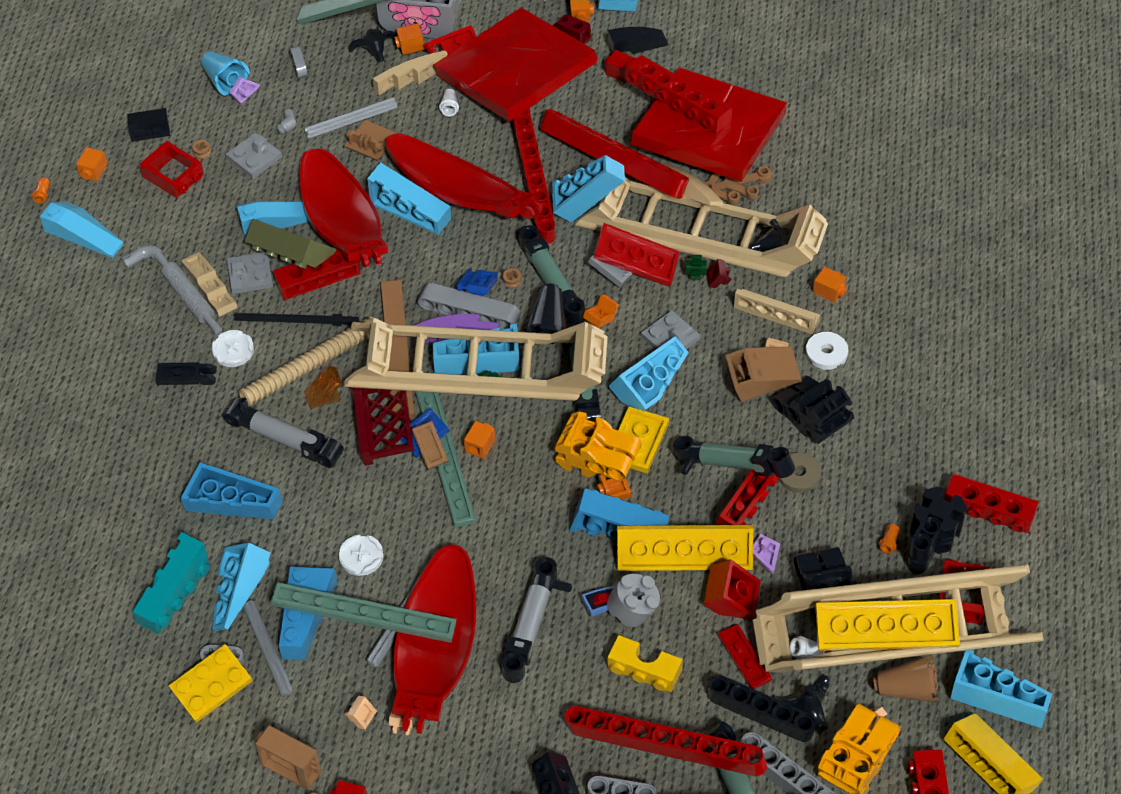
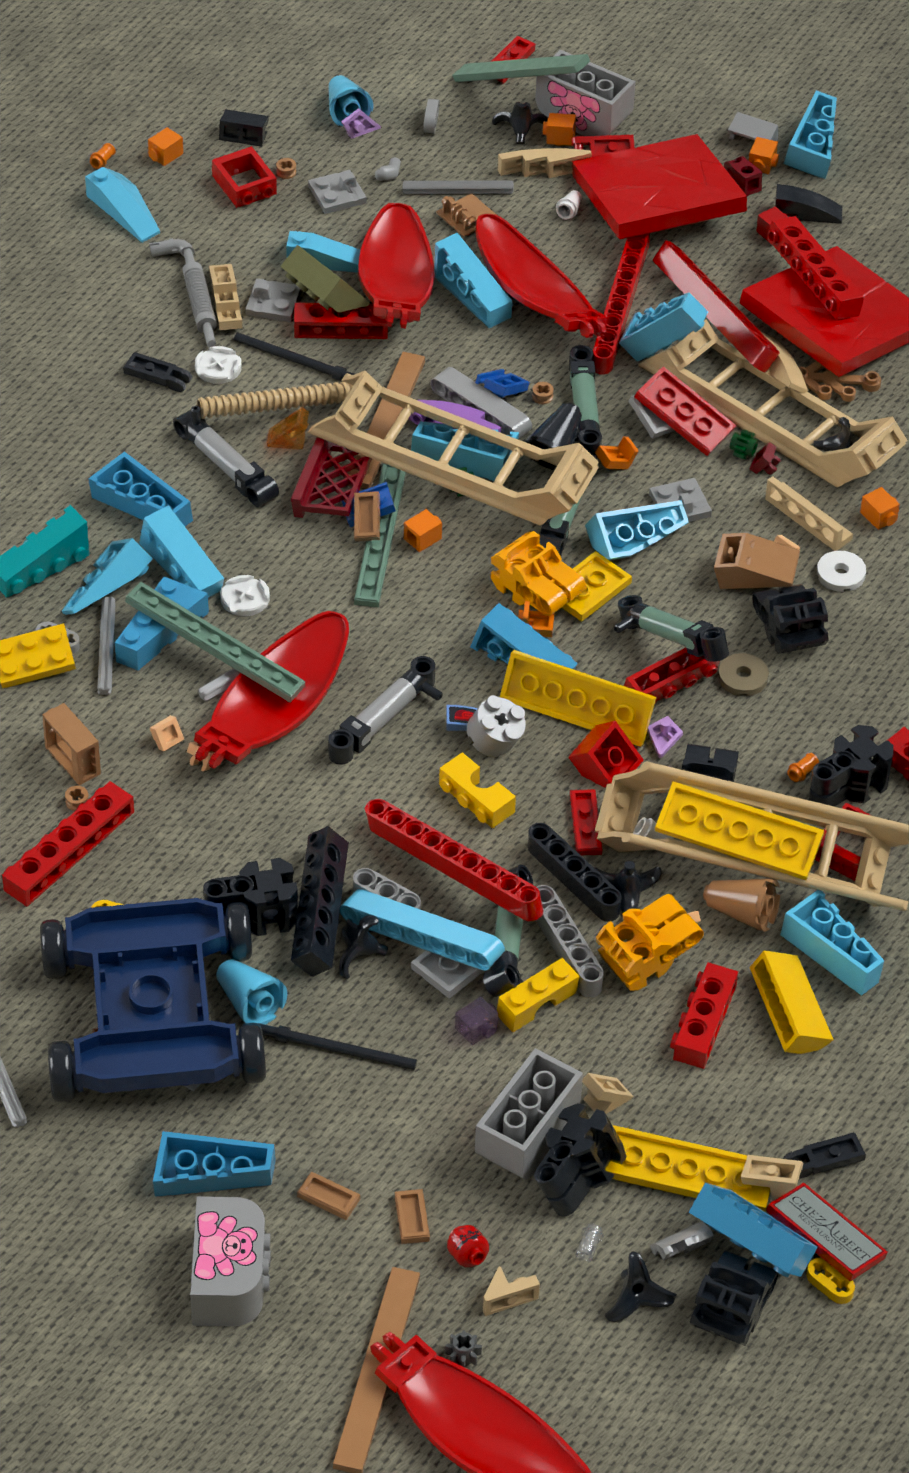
camera: 20 degrees right, 5 degrees down
(291, 539) = (178, 552): none -> medium azure wedge

